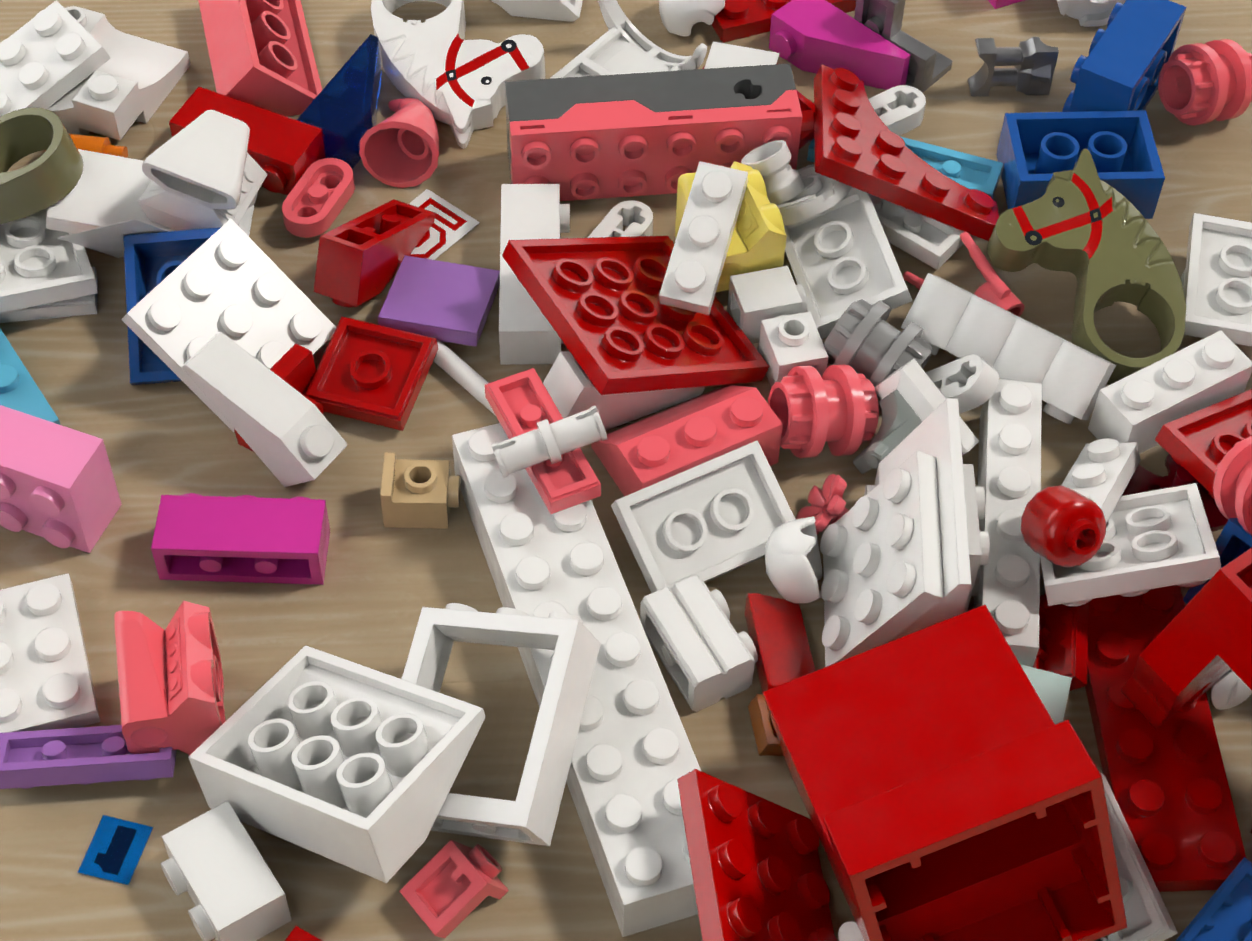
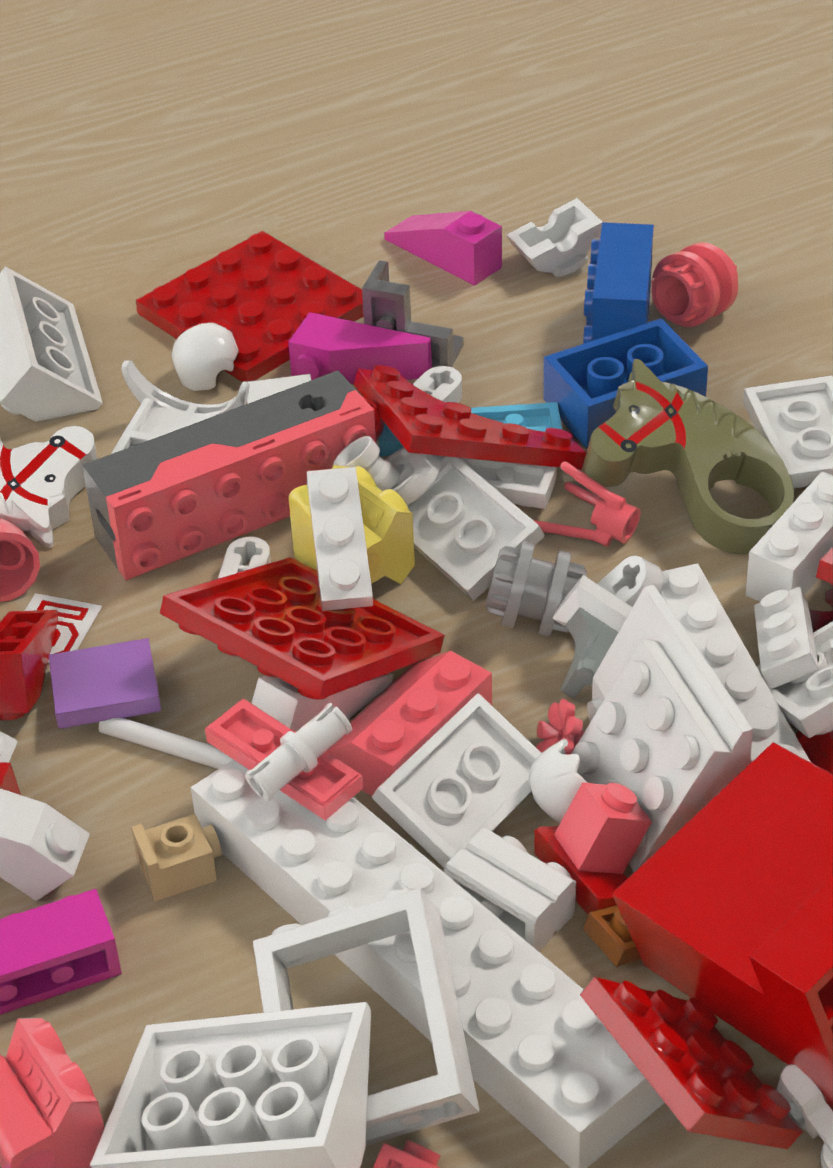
camera: 20 degrees left, 10 degrees down
(372, 372) = (75, 764): red plate -> none
(527, 213) = (193, 666): white brick -> none
(762, 297) = (413, 582): white brick -> none
(790, 343) = (463, 615): white brick -> none
(807, 618) = (602, 828): none -> coral brick
(823, 409) = (521, 649): coral piece -> none
(1011, 345) = (607, 538): white brick -> none
(1032, 70) = (538, 318): flat silver piece -> none
(1063, 526) = (790, 664): red head -> none

